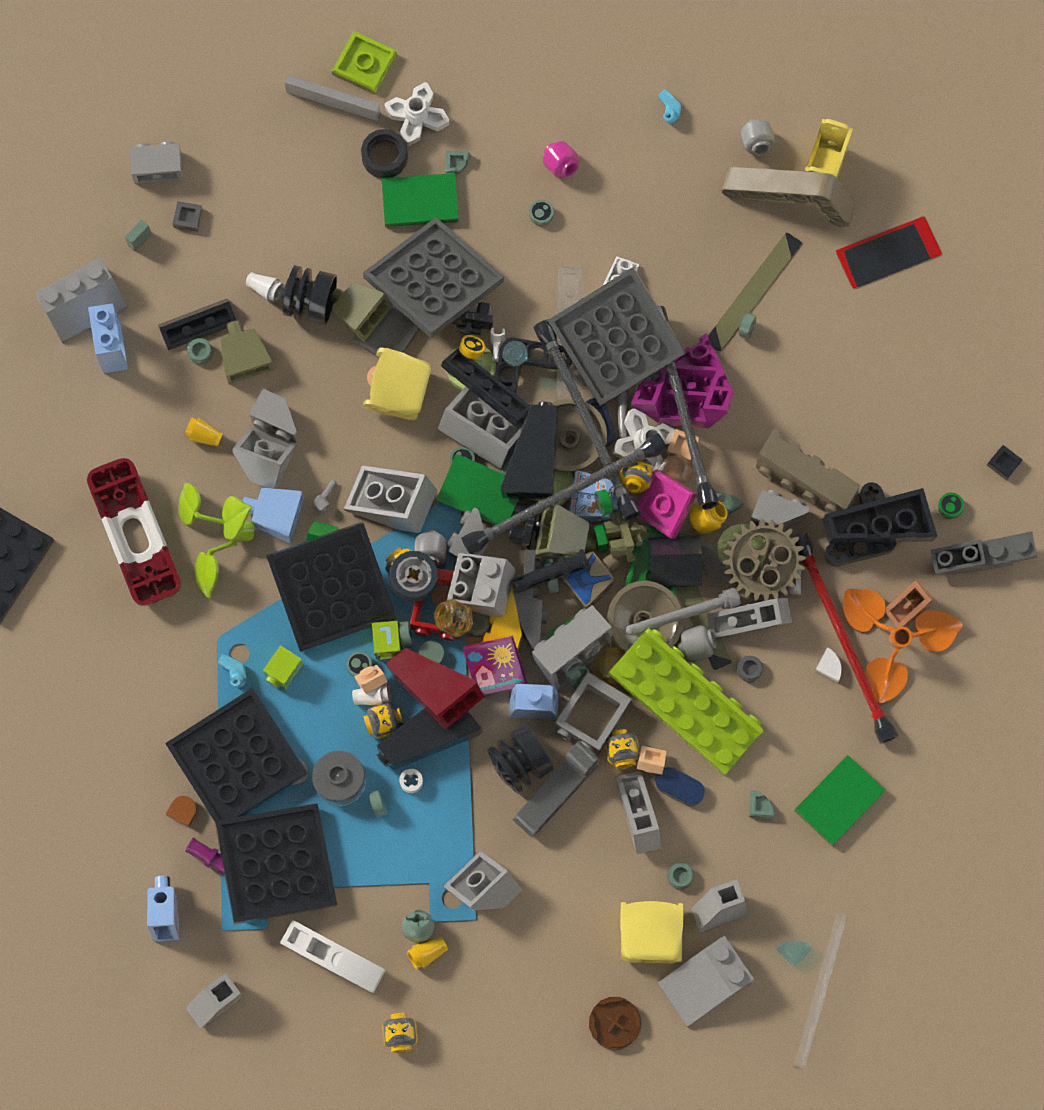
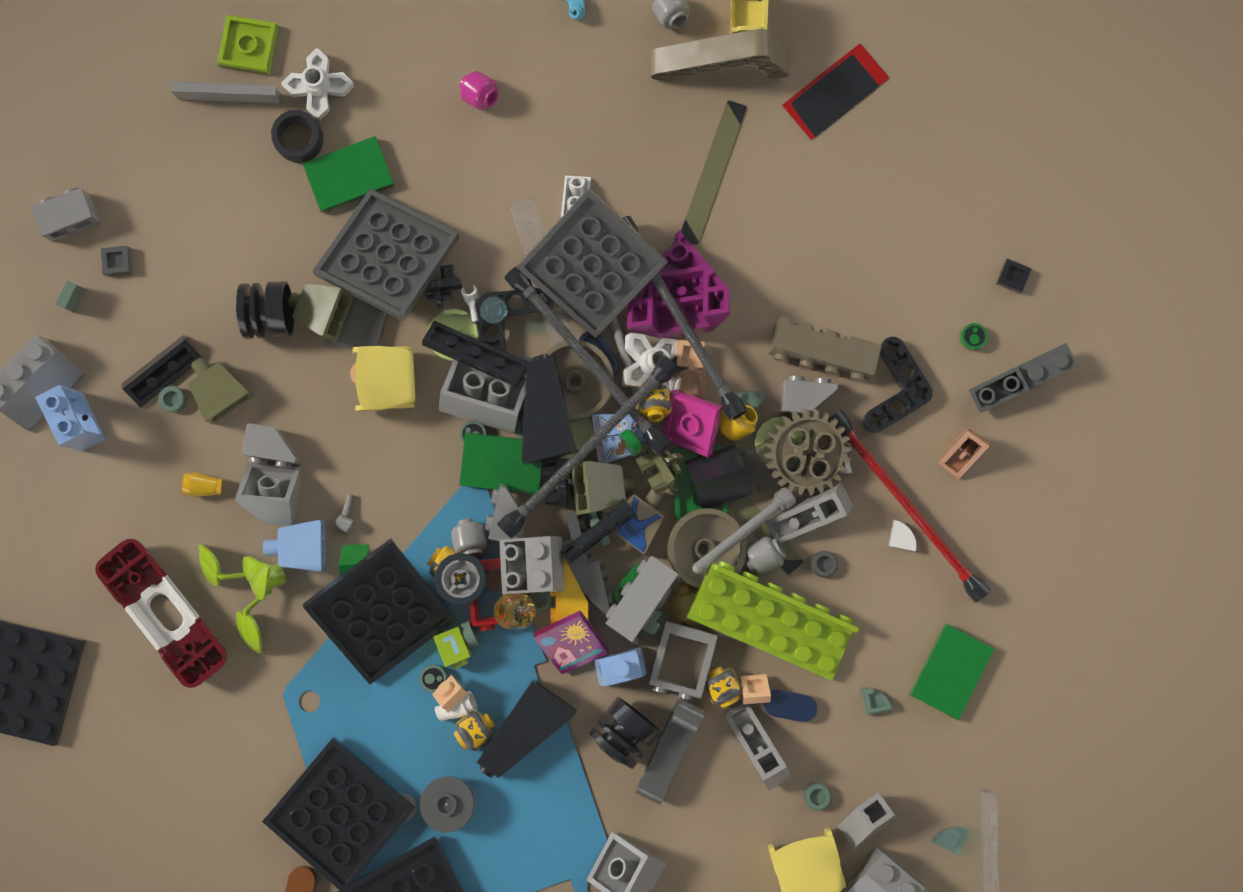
camera: 20 degrees left, 10 degrees up
(236, 670) = (311, 721): medium azure arm -> none
(267, 287) = (219, 312): white cone -> none
(282, 668) = (357, 707): lime brick -> none
(378, 803) = (495, 817): sand green tile -> none
(392, 498) = (413, 497): light grey slope -> none
(410, 773) = (525, 790): white bush -> none
(432, 650) = (502, 645): sand green tile -> none
(434, 686) = (520, 689): dark red slope -> none
(456, 161) = (373, 123): sand green tile -> none
(471, 347) = (447, 316): yellow tile -> none
(541, 212) = (475, 151): sand green tile -> none
(601, 537) = (637, 475): green tile -> none
(747, 325) = (718, 210): sand green tile -> none
(890, 519) = (924, 372): black wedge -> none
(935, 628) = (994, 469): orange plant -> none

